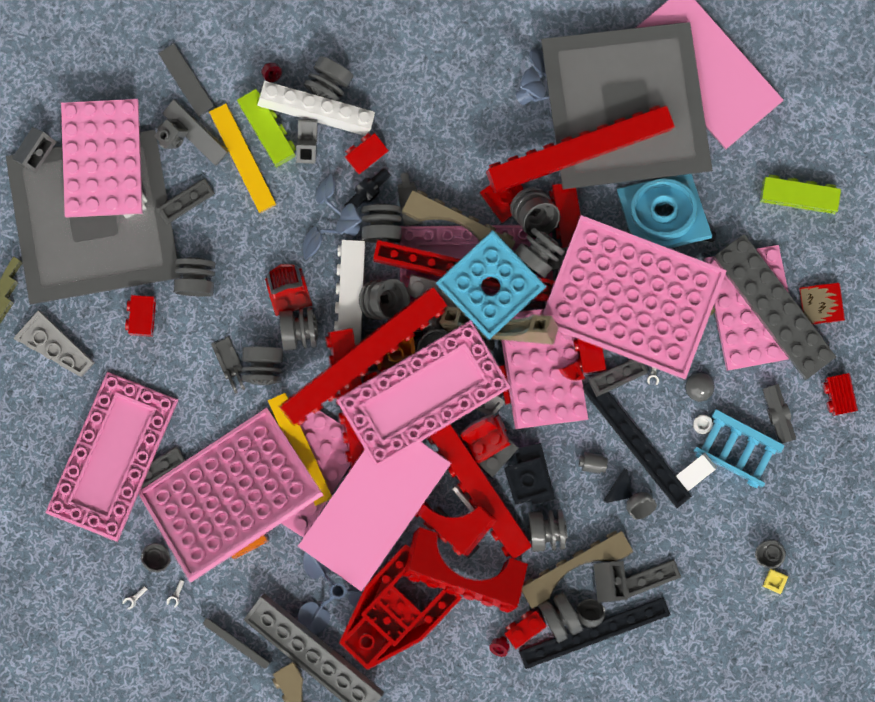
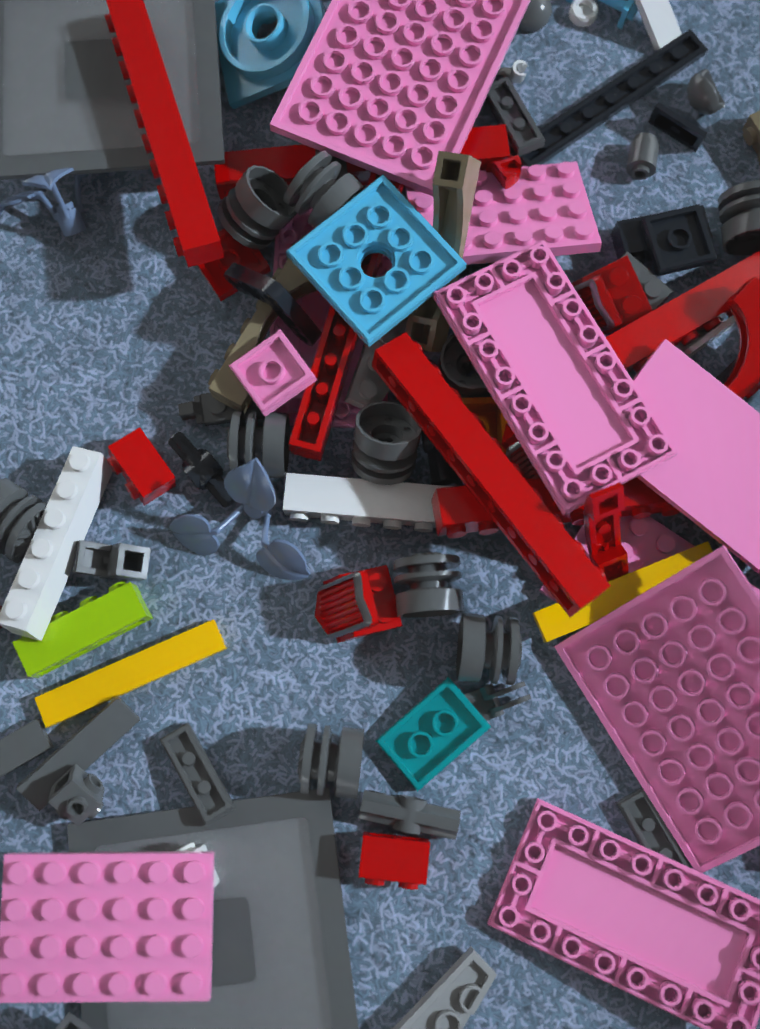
camera: 90 degrees left, 5 degrees down
(166, 324) = (410, 814): none -> dark grey piece
(213, 337) = (433, 733): none -> teal tile
(328, 431) = (603, 530): none -> red slope
(421, 228) = (273, 372): none -> bright pink tile
(470, 224) = (279, 299): none -> black beam

